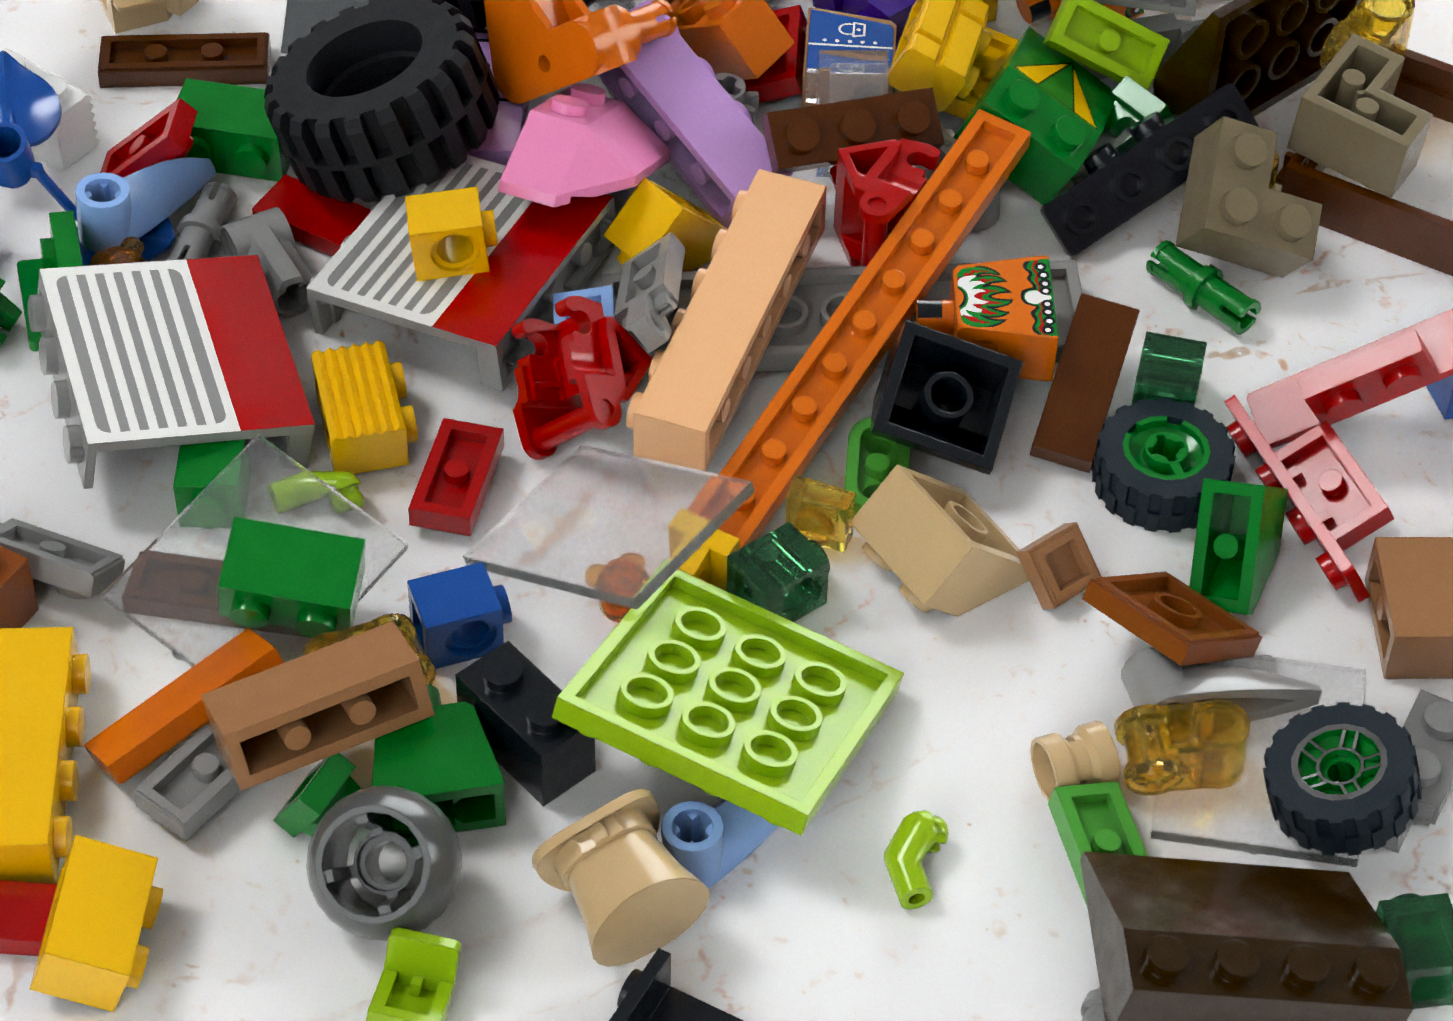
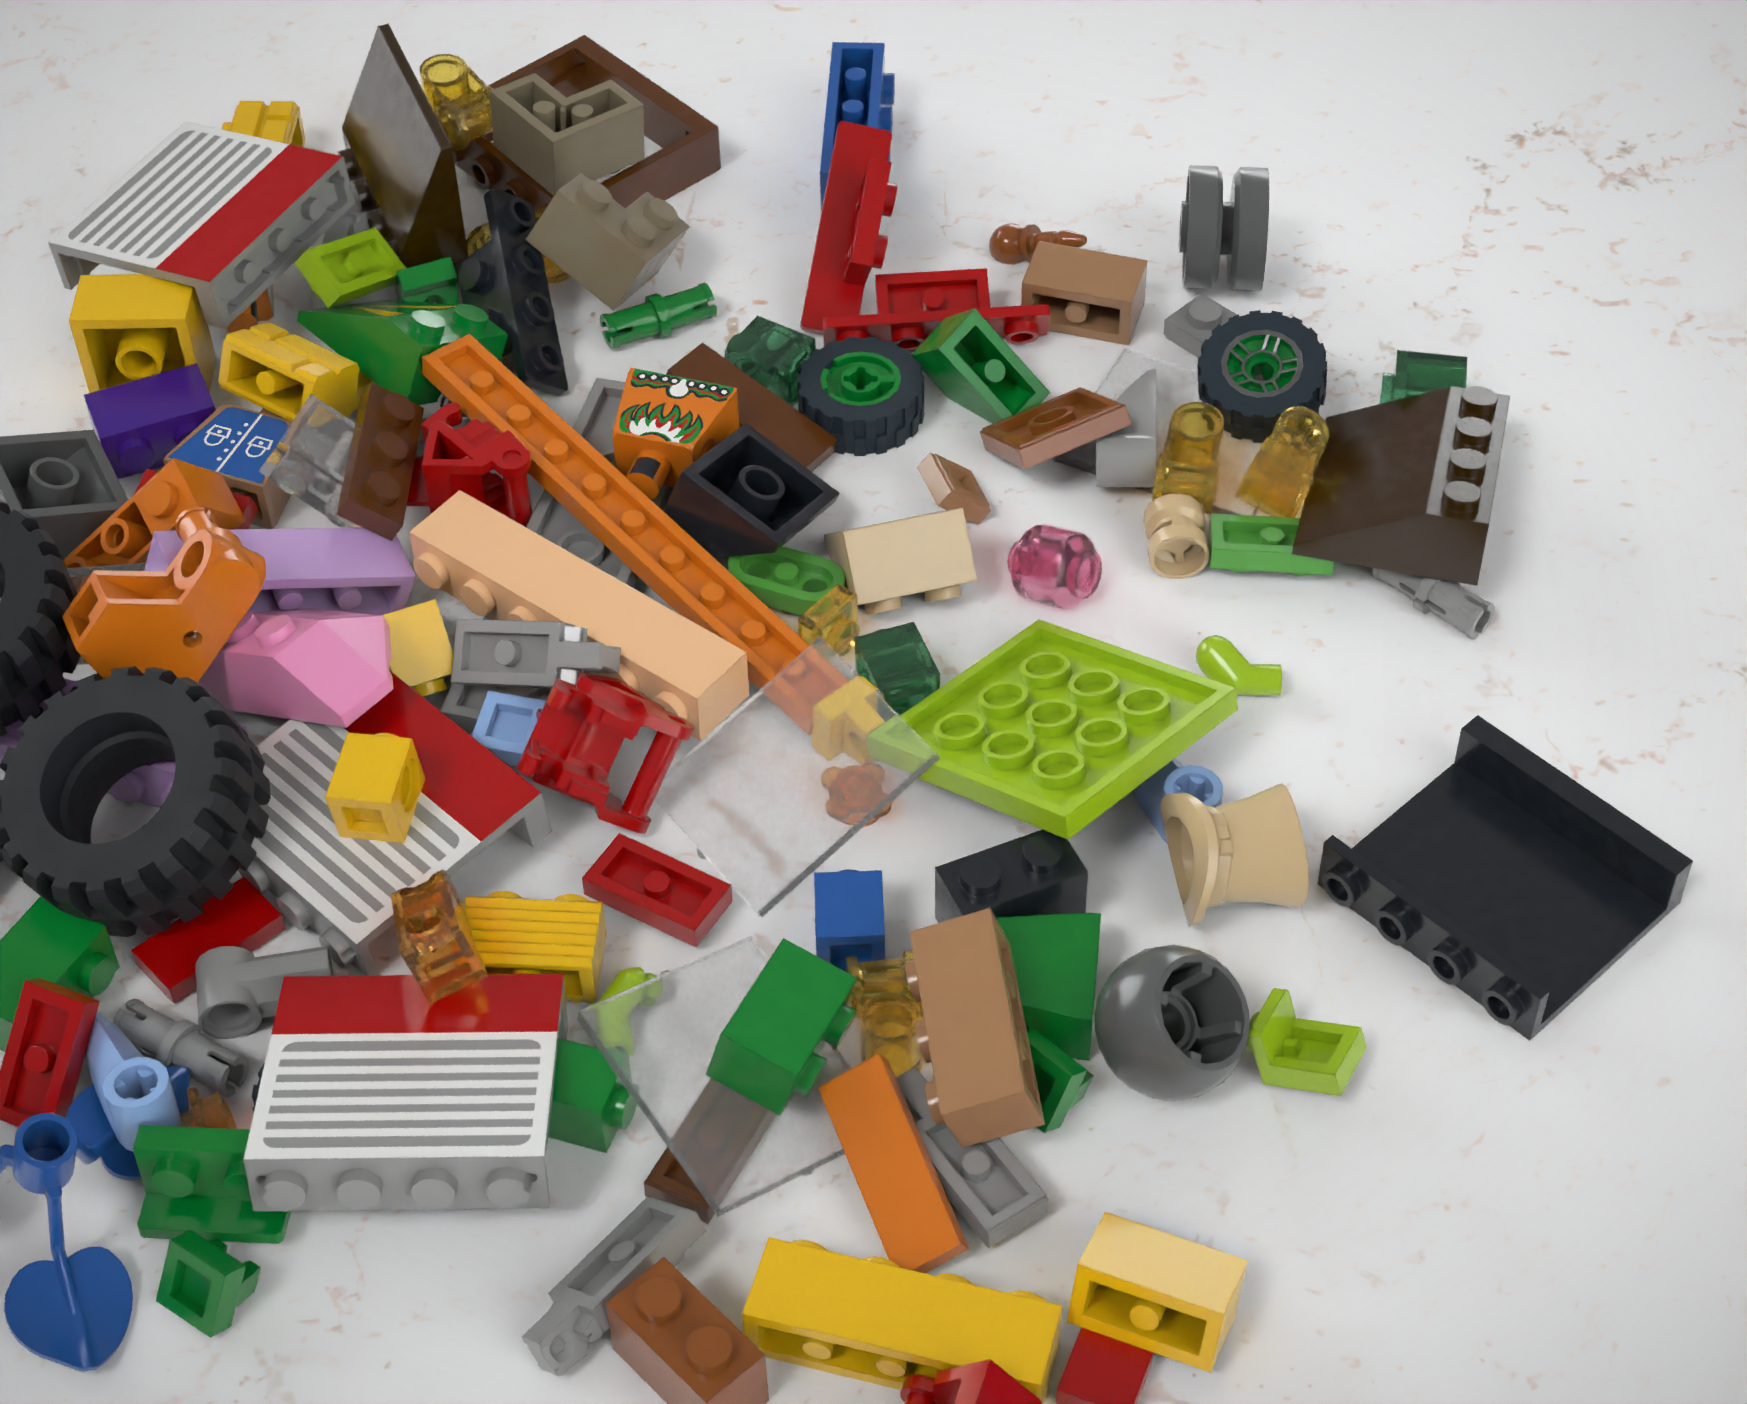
camera: 70 degrees left, 0 degrees up
(308, 316) = (436, 937): none -> clear orange leg
(980, 667) = (1054, 566): none -> clear pink head
(1214, 824) = (1285, 464): none -> clear yellow piece

